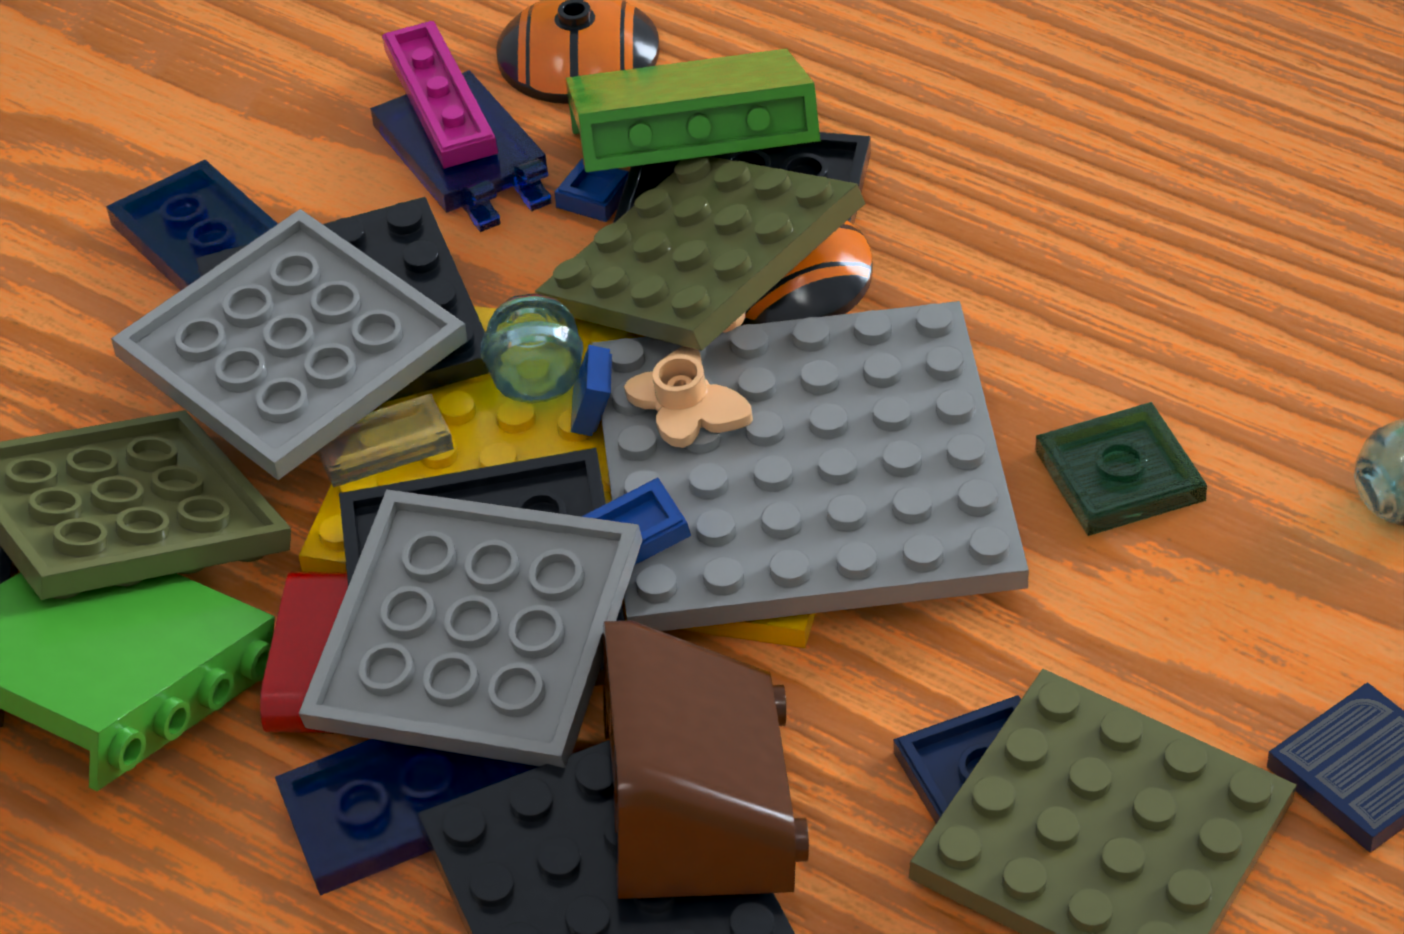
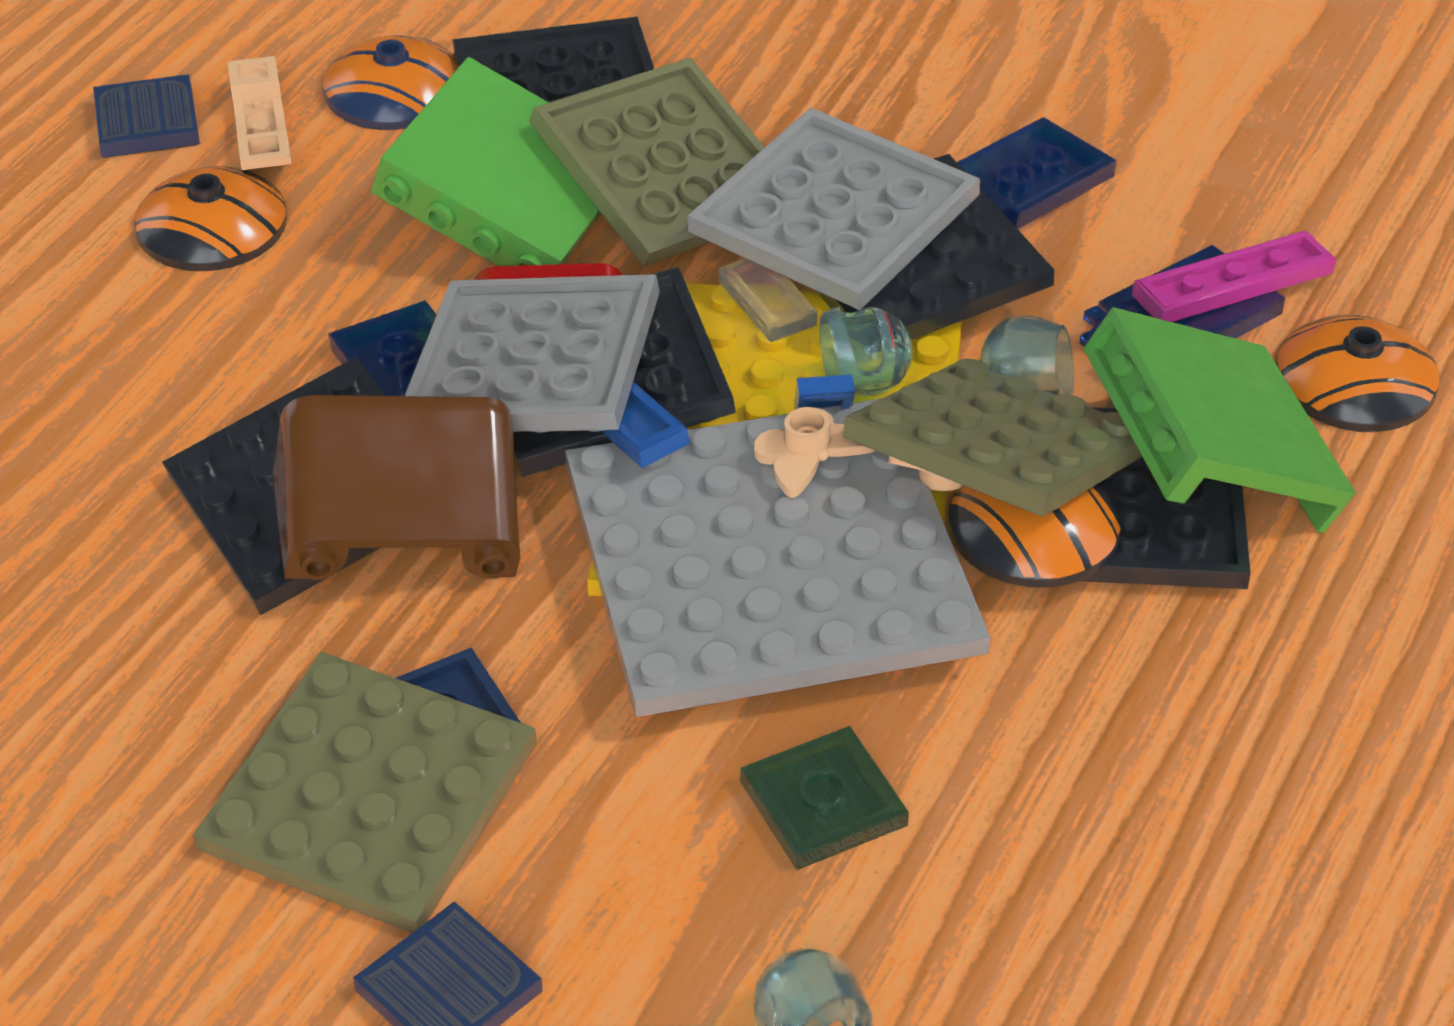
camera: 80 degrees right, 0 degrees up
(538, 237) = (1033, 350): none -> clear light blue helmet

